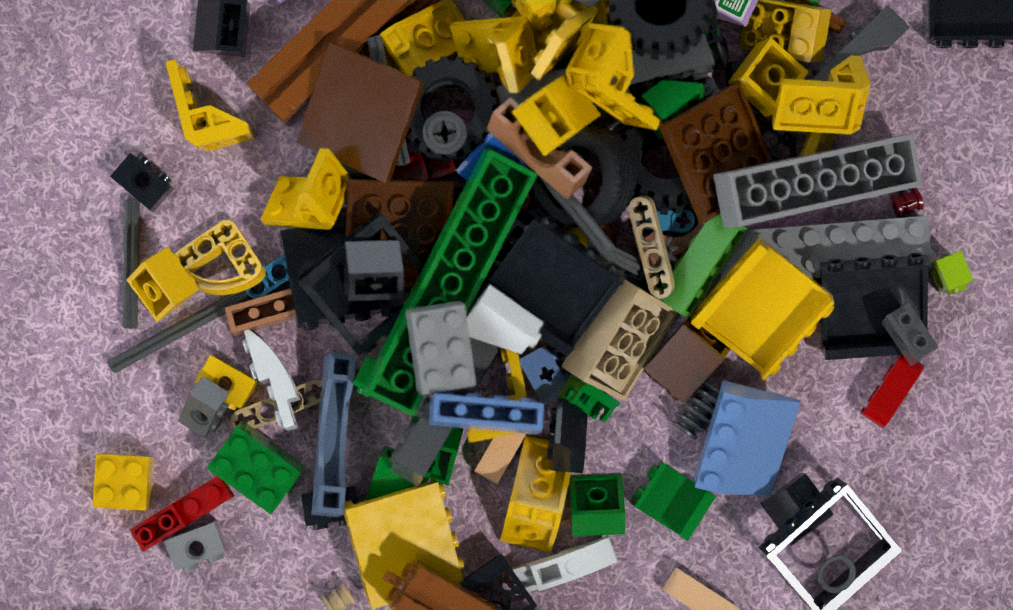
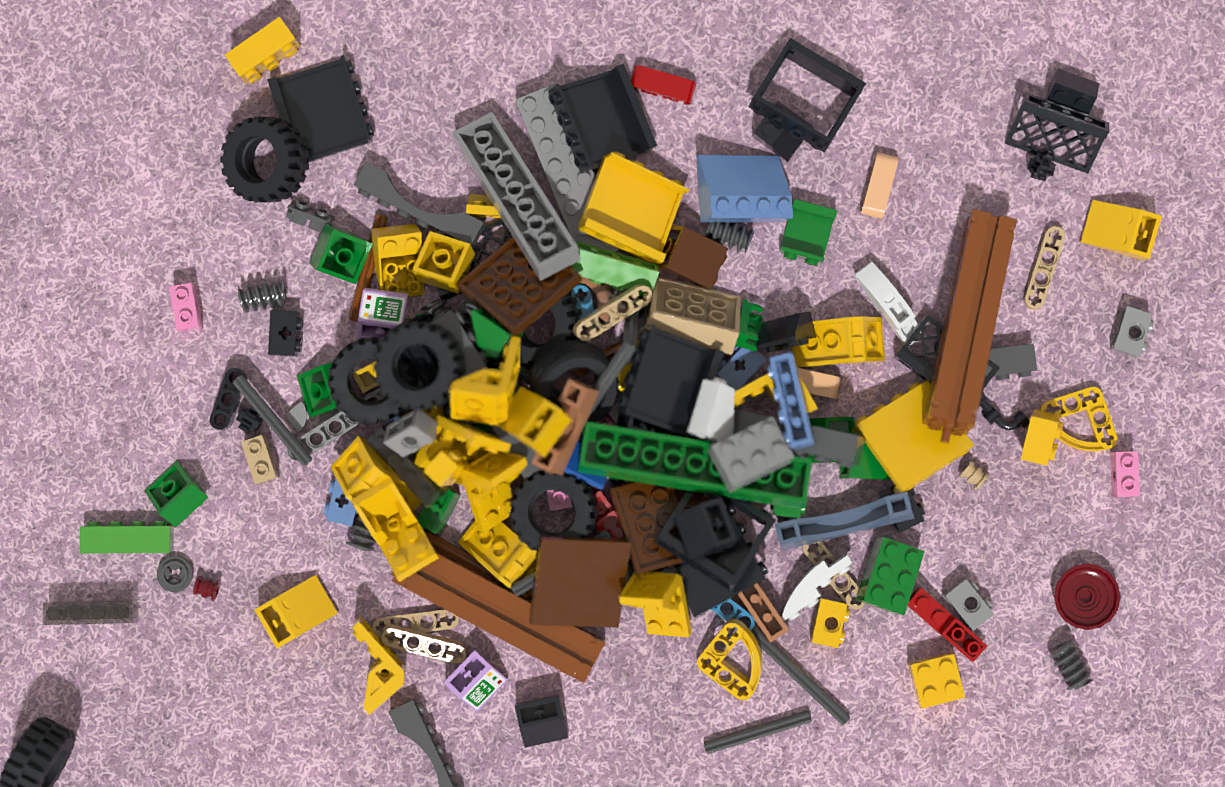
camera: 105 degrees left, 0 degrees up
(128, 175) = (688, 757): black brick -> none
(162, 284) = (767, 699): yellow brick -> none
(204, 407) = (855, 632): dark grey brick -> none
(220, 127) = (624, 694): yellow bracket -> none
(433, 126) = (565, 504): dark grey gear -> none
(597, 505) = (831, 292): green slope -> none
(824, 105) = (454, 207): yellow bracket -> none
(852, 573) = (830, 72): dark grey piece -> none
(906, 202) = (508, 120): dark red bush -> none
(909, 334) = (616, 84): dark grey brick -> none
(951, 273) = (555, 66): lime brick -> none

